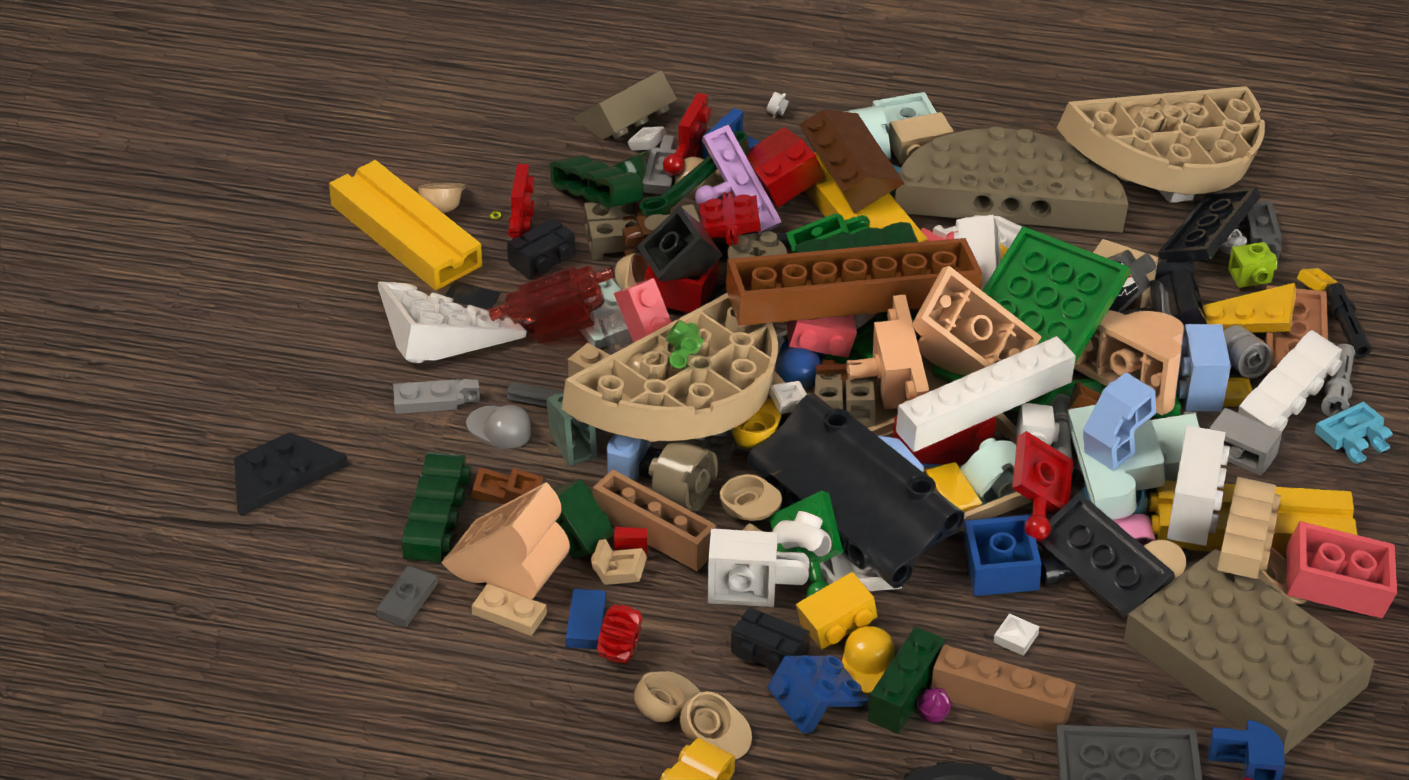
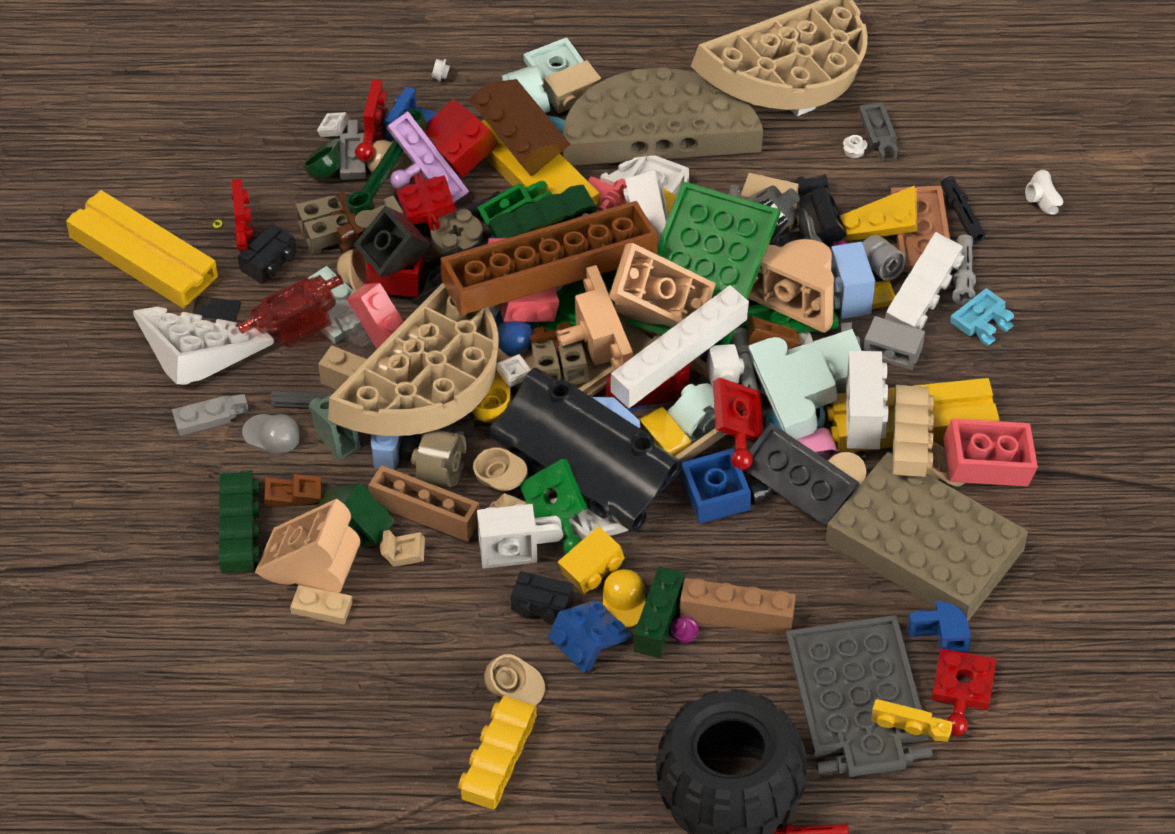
camera: 10 degrees left, 10 degrees up
(281, 469) = (96, 506): black wing -> none
(406, 596) = (233, 607): dark grey plate -> none
(442, 195) = (167, 212): tan cap -> none
(585, 618) = (386, 602): blue tile -> none
(596, 181) = (301, 181): dark green brick -> none
(619, 633) = (419, 613): red gear -> none
(628, 107) = (309, 95): dark tan slope -> none
(631, 538) = (408, 524): red tile -> none
(663, 695) = (467, 660): tan cap -> none
(686, 342) = (422, 342): bright green plate -> none
(804, 533) = (553, 499): white piece -> none
(1016, 634) = (739, 553): white tile -> none
(1119, 412) = (790, 357): light blue brick -> none
(1209, 225) = (834, 136): black plate -> none
(1252, 264) = (876, 169): lime brick -> none
(1315, 279) = (931, 174): yellow tile -> none

